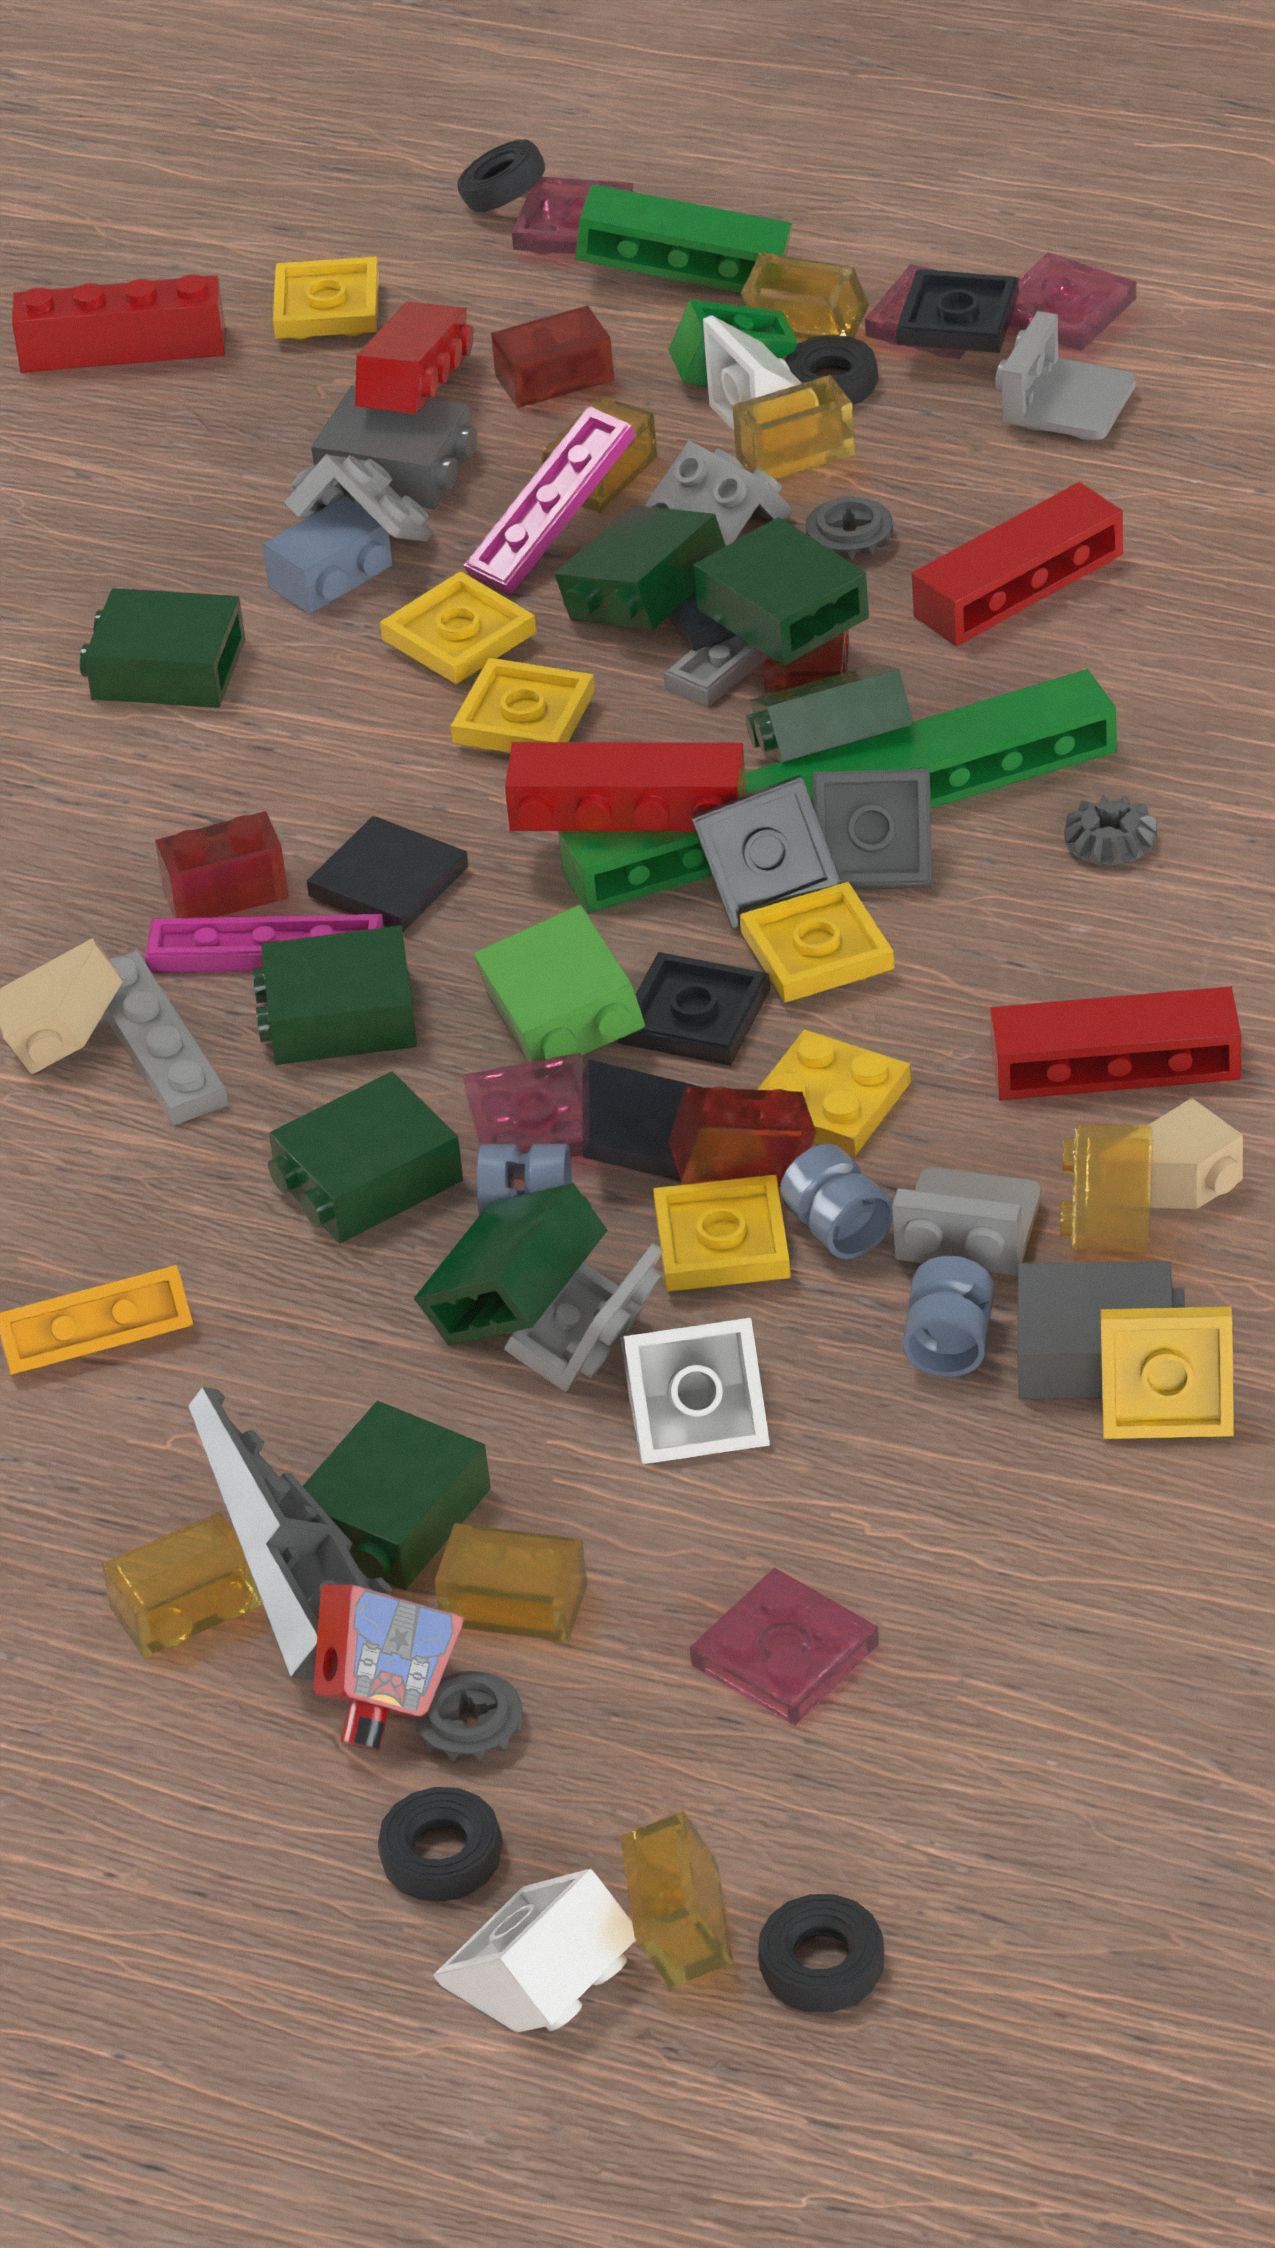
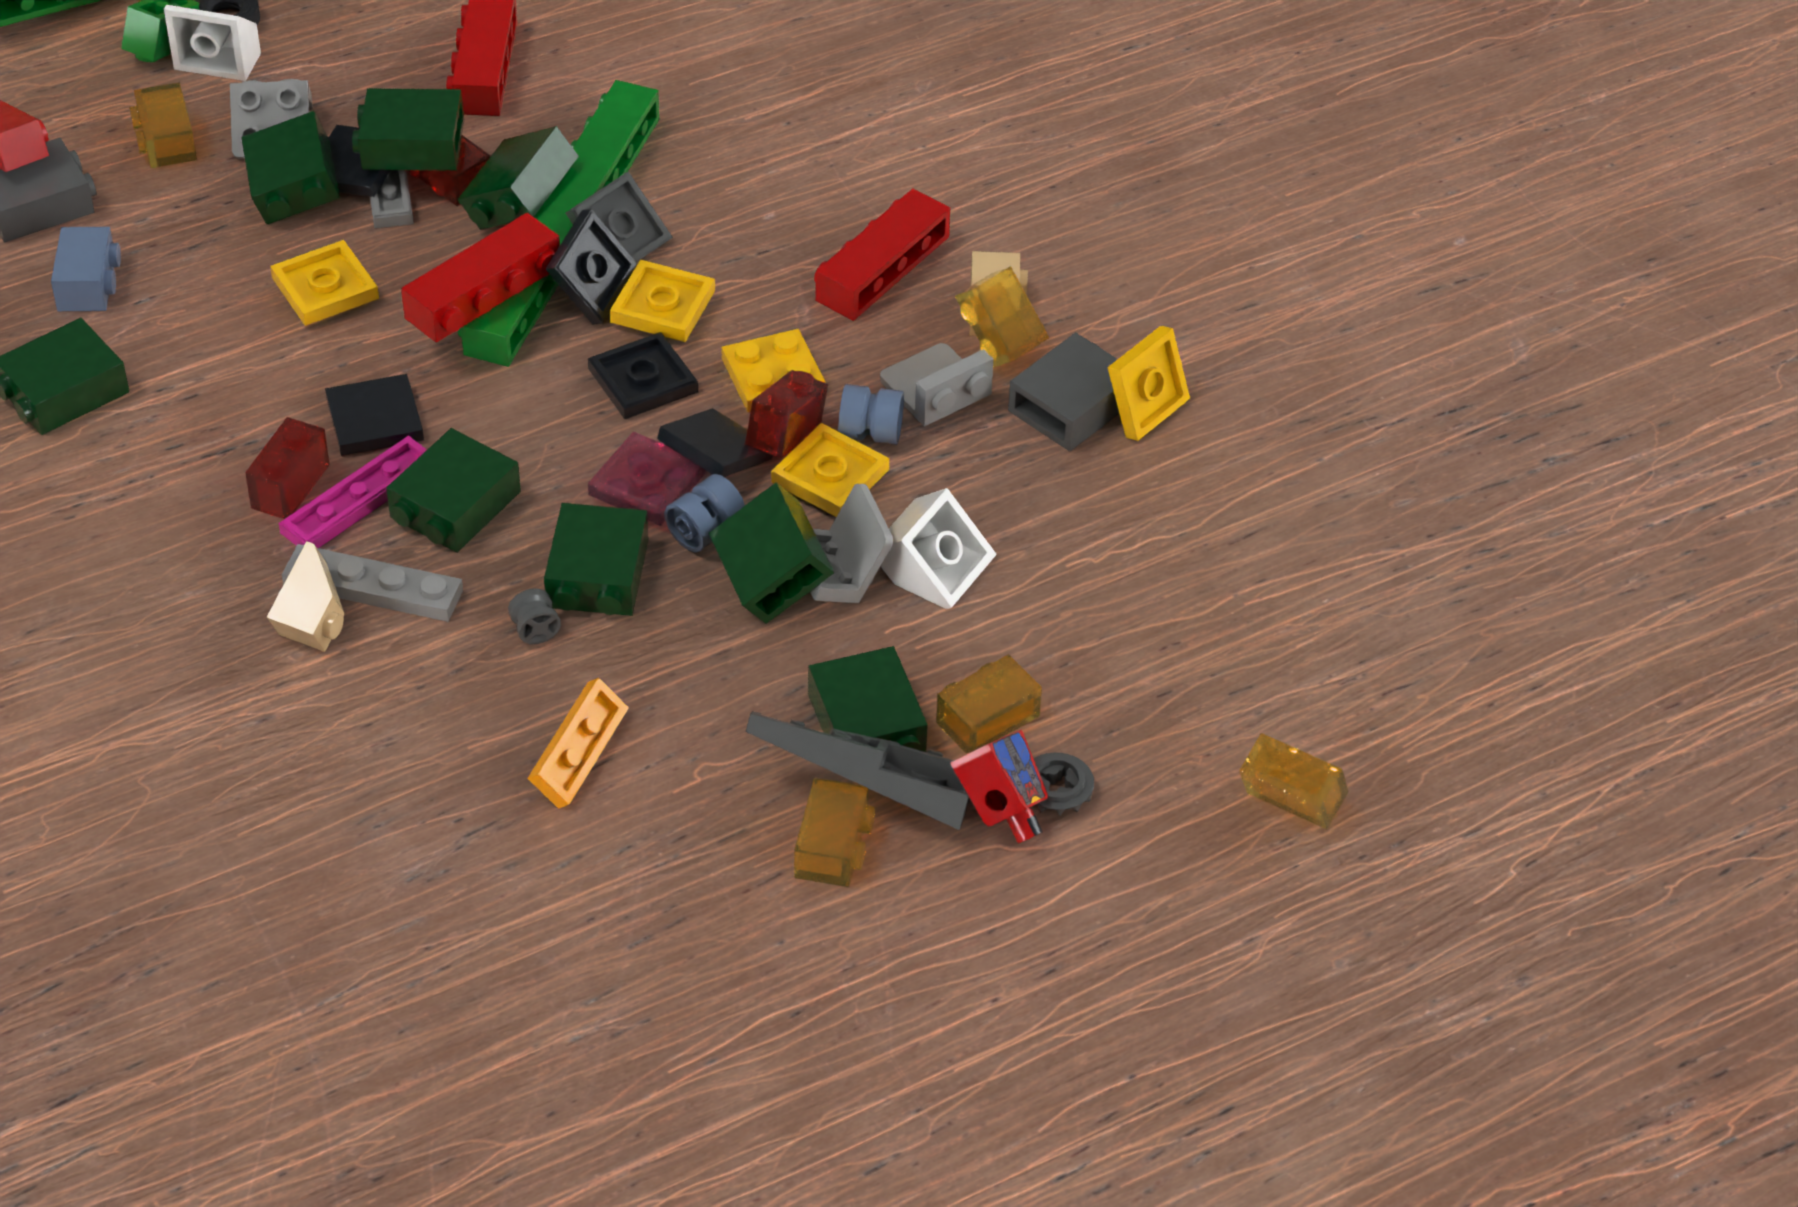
camera: 55 degrees left, 5 degrees up
(230, 1170) = (534, 616): none -> dark grey wheel
(362, 482) = (49, 226): light grey bracket -> none
(445, 1877) = (1137, 828): black tyre -> none
(458, 627) = (220, 263): yellow plate -> none
(542, 1953) = (1259, 858): white slope -> none
(549, 500) = (184, 163): tile -> none
(552, 356) = (56, 87): clear red brick -> none
(559, 988) = (577, 406): bright green brick -> none
(784, 1646) = (1144, 638): clear pink plate -> none
(794, 428) = (268, 46): clear yellow piece -> none
(821, 1917) = (1376, 737): black tyre -> none
(868, 518) = (360, 77): dark grey gear -> none
(948, 1316) = (1003, 430): sand blue wheel -> none
(1107, 844) = (733, 164): dark grey gear -> none

